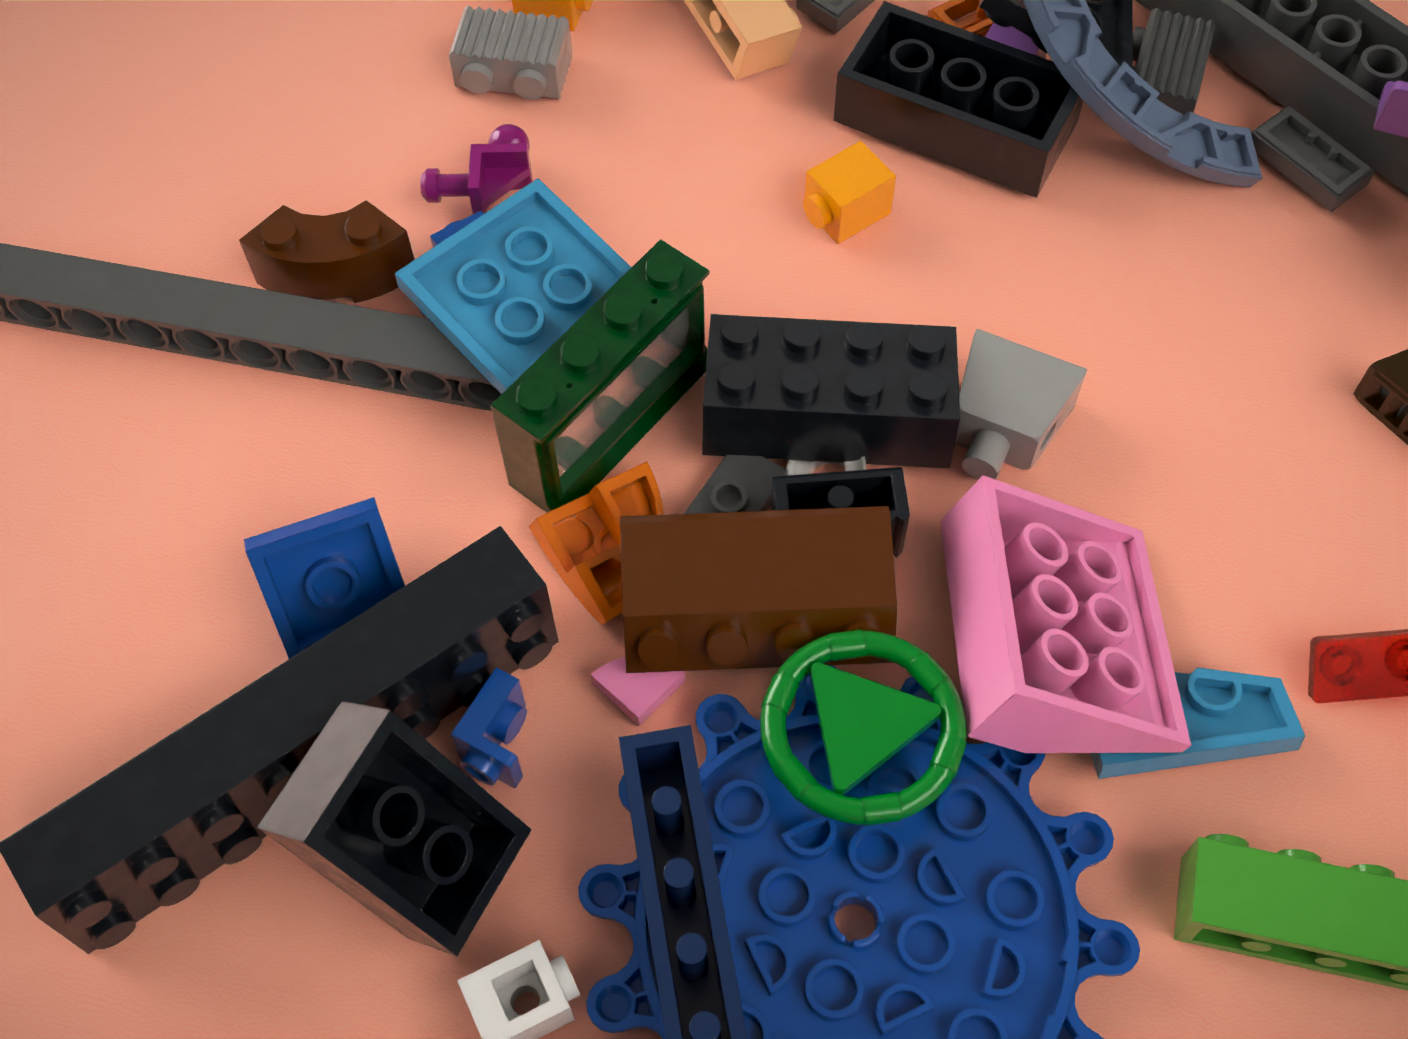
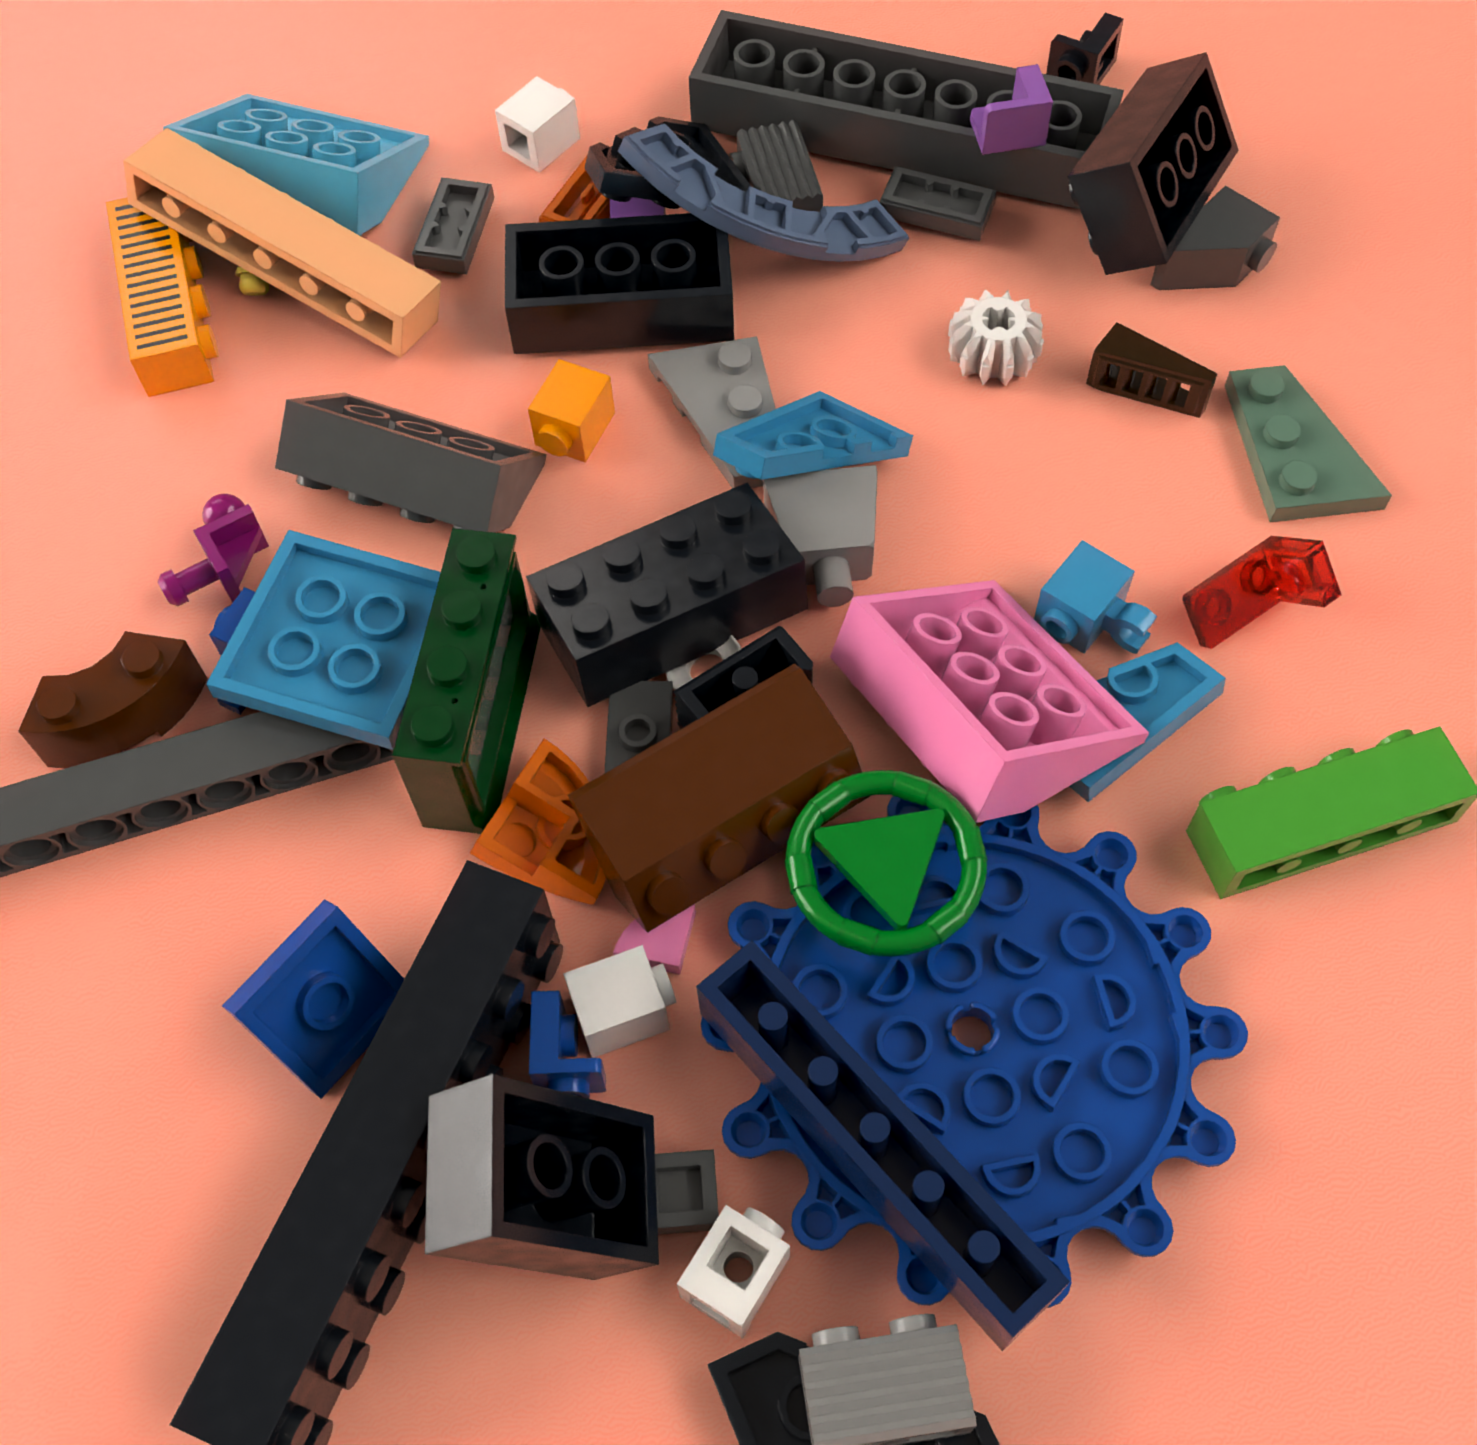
camera: 30 degrees left, 0 degrees up
(511, 53) = (170, 428): light grey brick -> none
(521, 909) = (686, 1191): none -> dark grey plate
(568, 717) = (620, 1000): none -> white brick
(683, 171) = (406, 462): none -> dark grey slope
(993, 253) = (717, 390): none -> light grey wing
(1042, 314) = (808, 438): none -> dark azure wing
(1219, 592) = (1090, 597): none -> dark azure brick
(1285, 308) = (995, 337): none -> white gear

